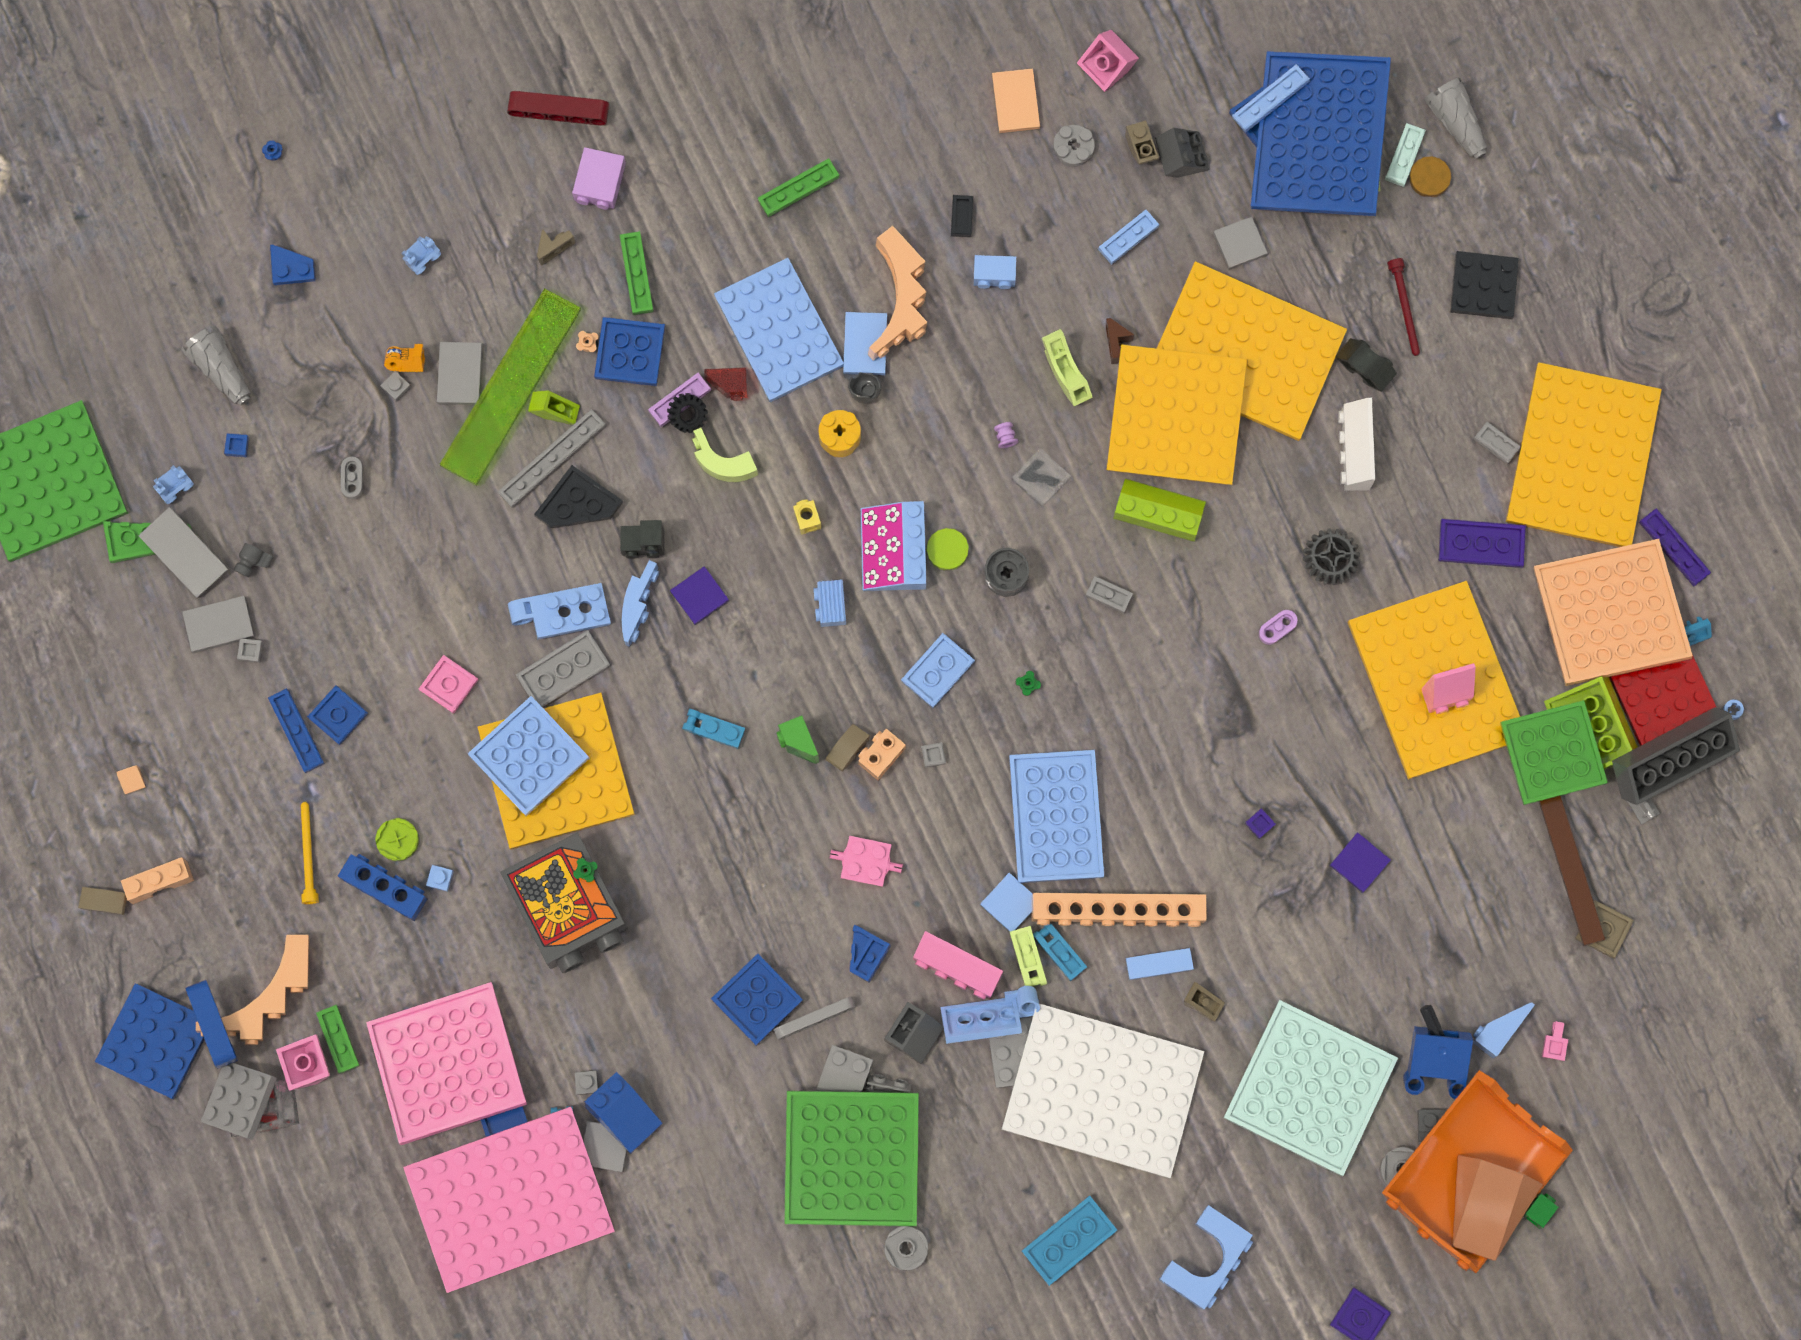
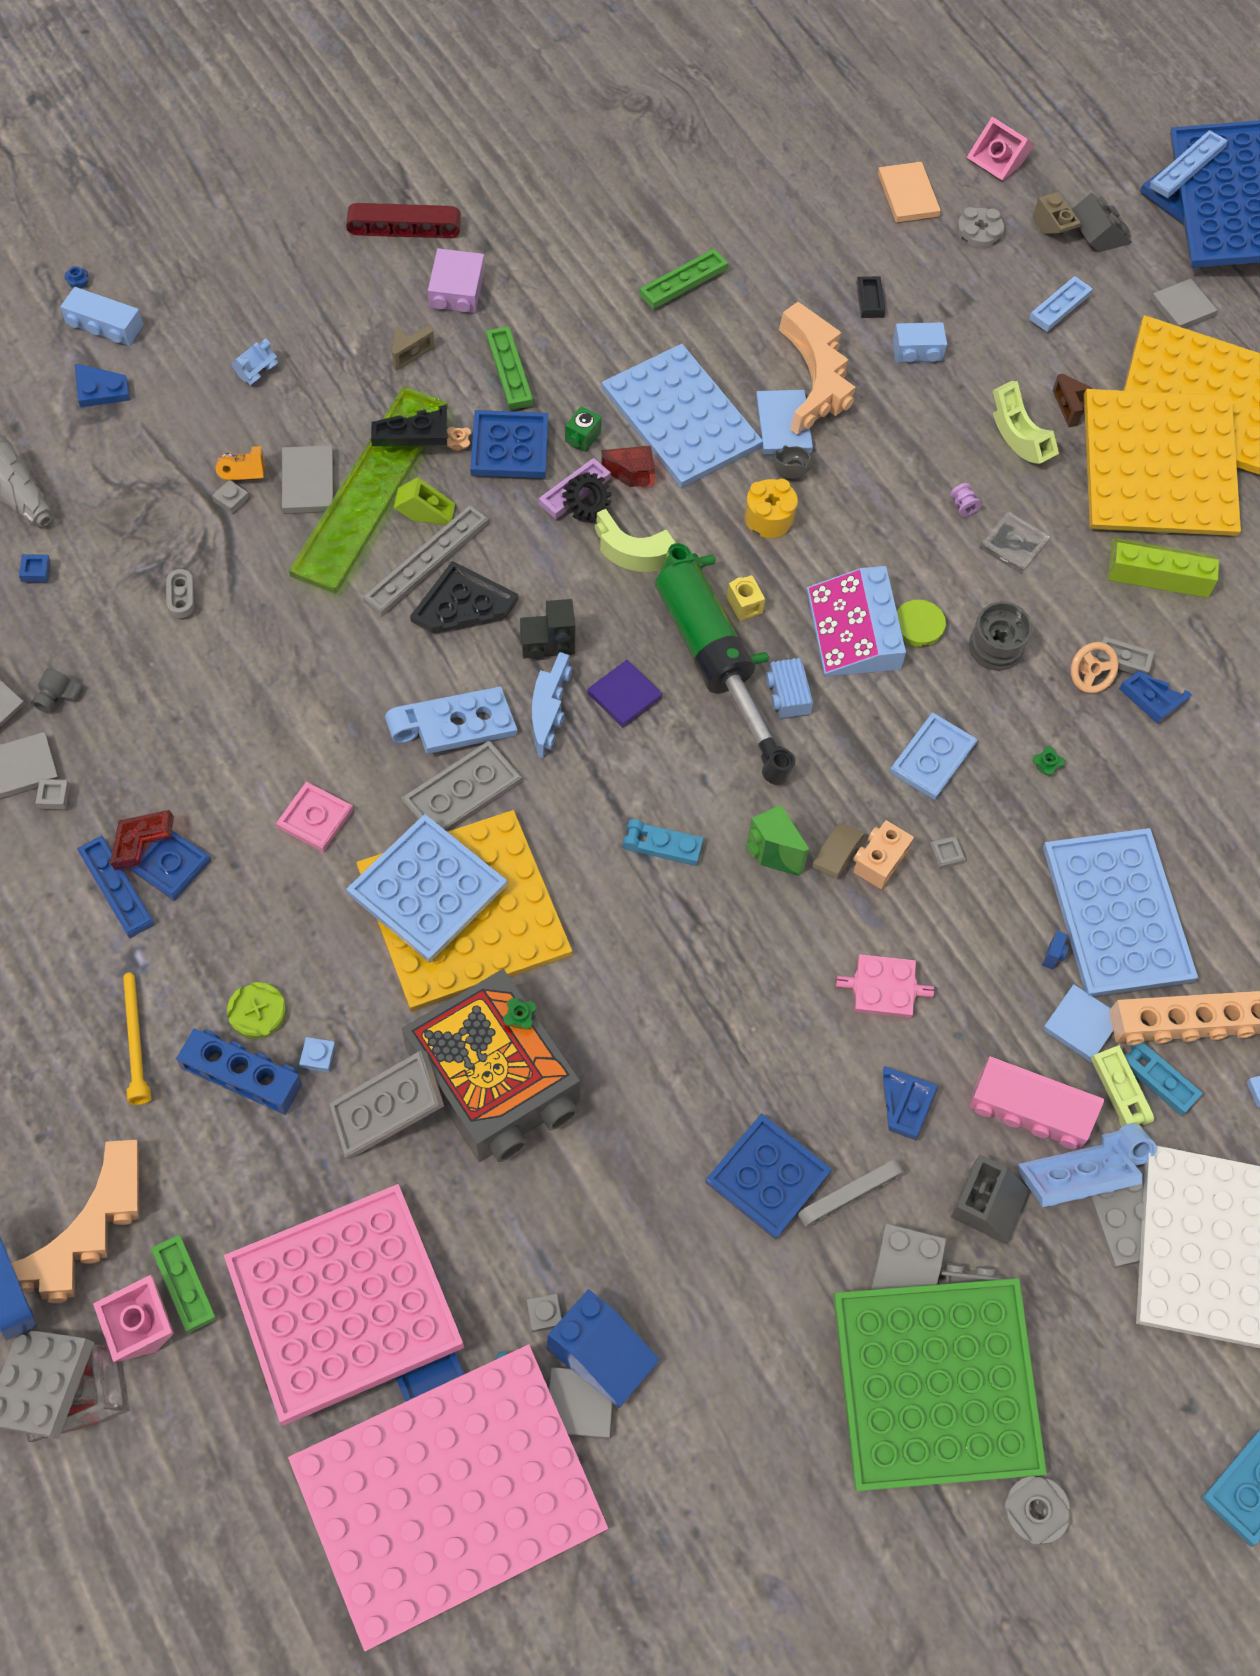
camera: 10 degrees left, 15 degrees down
(293, 197) = (101, 316): none -> light blue brick
(311, 690) = (133, 835): none -> clear red plate
(485, 925) = (386, 1104): none -> light grey tile
(552, 337) = (411, 431): none -> black wing
(692, 342) = (583, 429): none -> green brick
(773, 561) = (716, 647): none -> piece
(1001, 844) = (1056, 950): none -> blue plate
(1079, 603) = (1082, 664): none -> light nougat piece
(1125, 632) = (1153, 695): none -> blue wing

